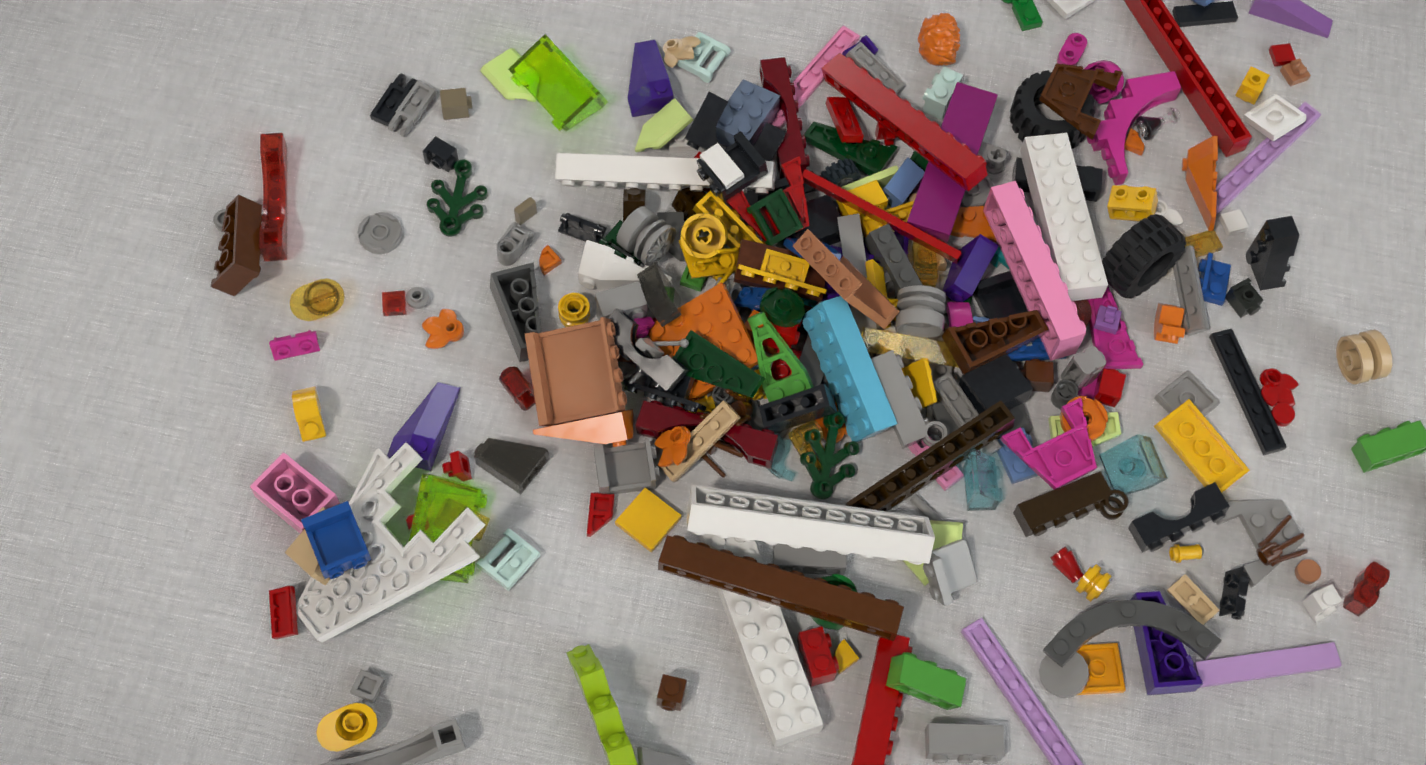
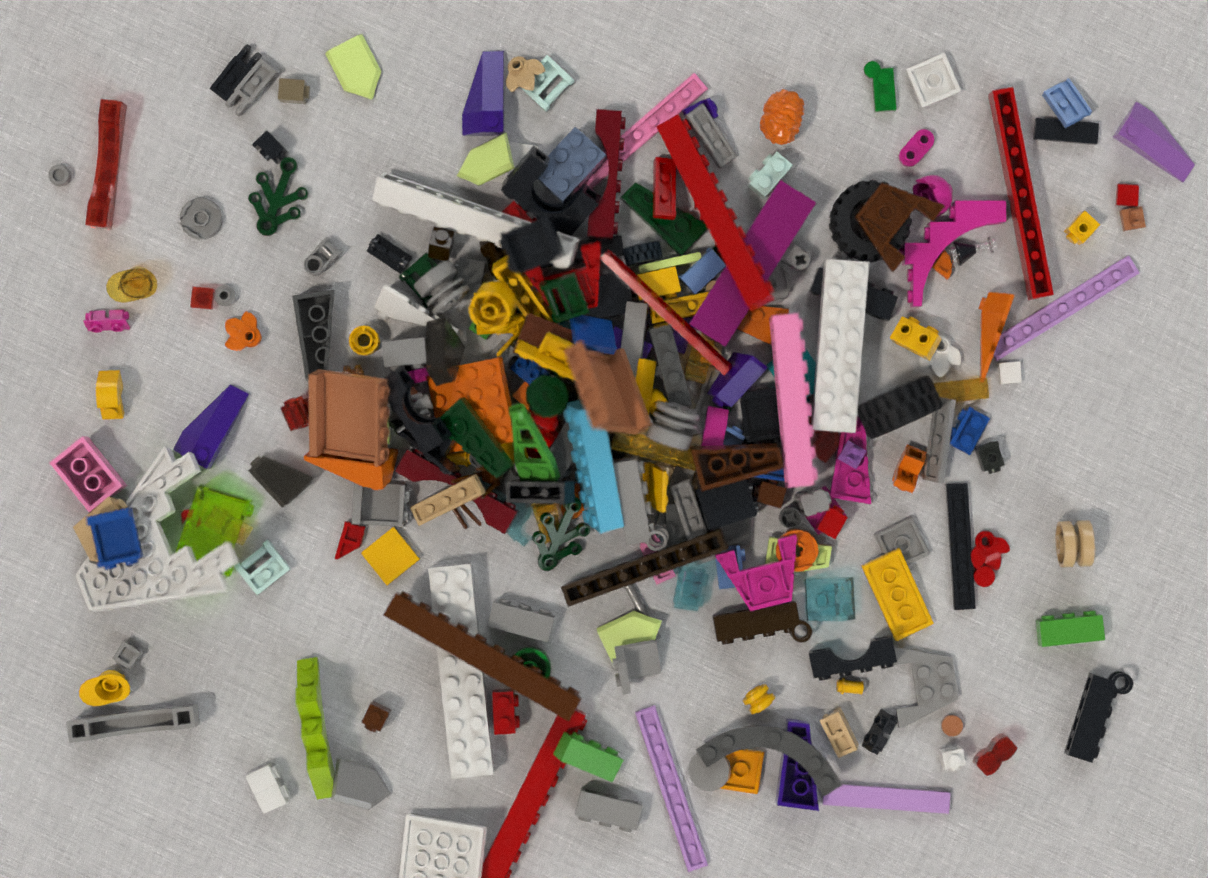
camera: 15 degrees right, 25 degrees up
(239, 246) = (68, 212): reddish brown wedge -> none
(283, 612) = (66, 575): red plate -> none
(458, 466) = (234, 473): red tile -> none
(525, 210) = (339, 225): dark tan tile -> none
(548, 260) = (351, 279): orange tile -> none
(557, 84) = (396, 93): clear neon green windscreen -> none
(646, 344) = (420, 405): light grey tile -> none
(674, 445) = (425, 499): orange plate -> none
(683, 343) = (421, 397): light grey hinge -> none
(722, 166) = (522, 243): white tile -> none
(809, 524) = (520, 608): white brick -> none
(845, 656) = (529, 714): yellow tile -> none
(1067, 564) = (742, 675): red cone -> none
(1270, 553) = (921, 706): reddish brown plant -> none
(1271, 252) = (1027, 424): black wedge -> none
(1274, 117) = (1089, 270): white plate -> none

